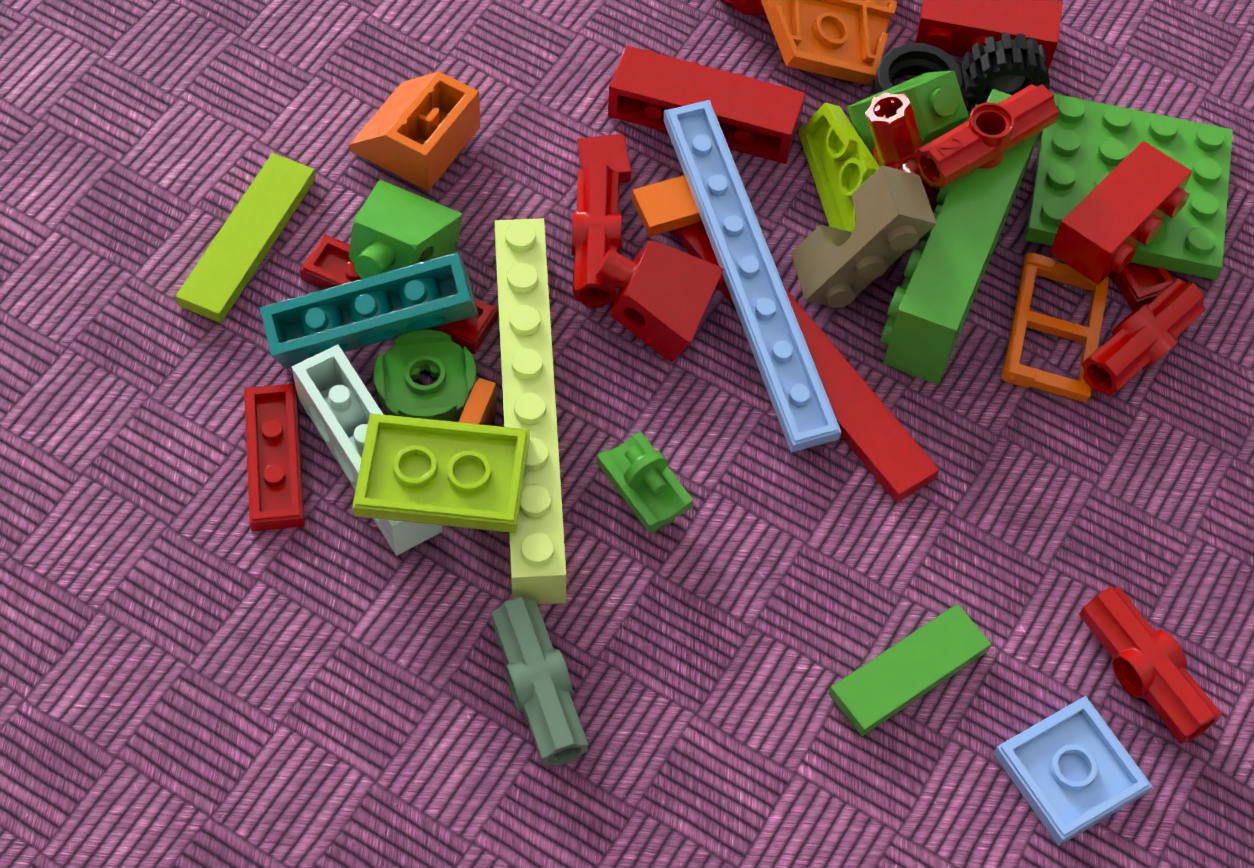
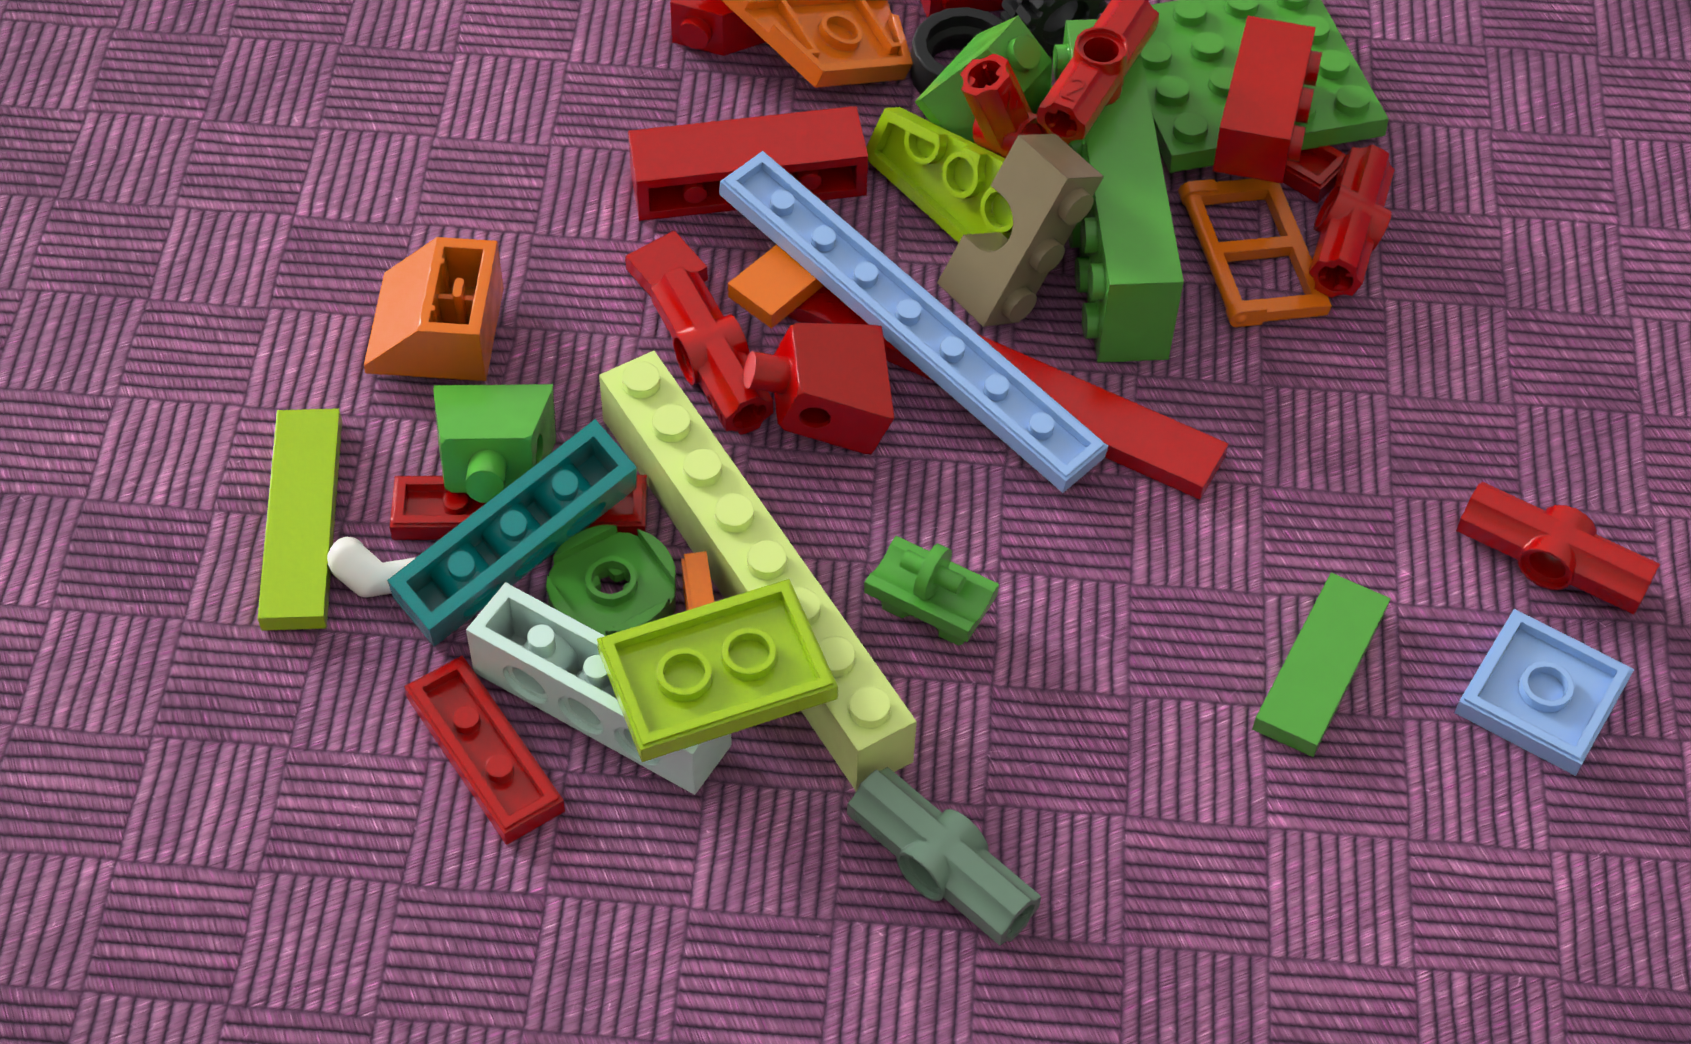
camera: 25 degrees left, 5 degrees down
(261, 286) = (361, 569): none -> white arm

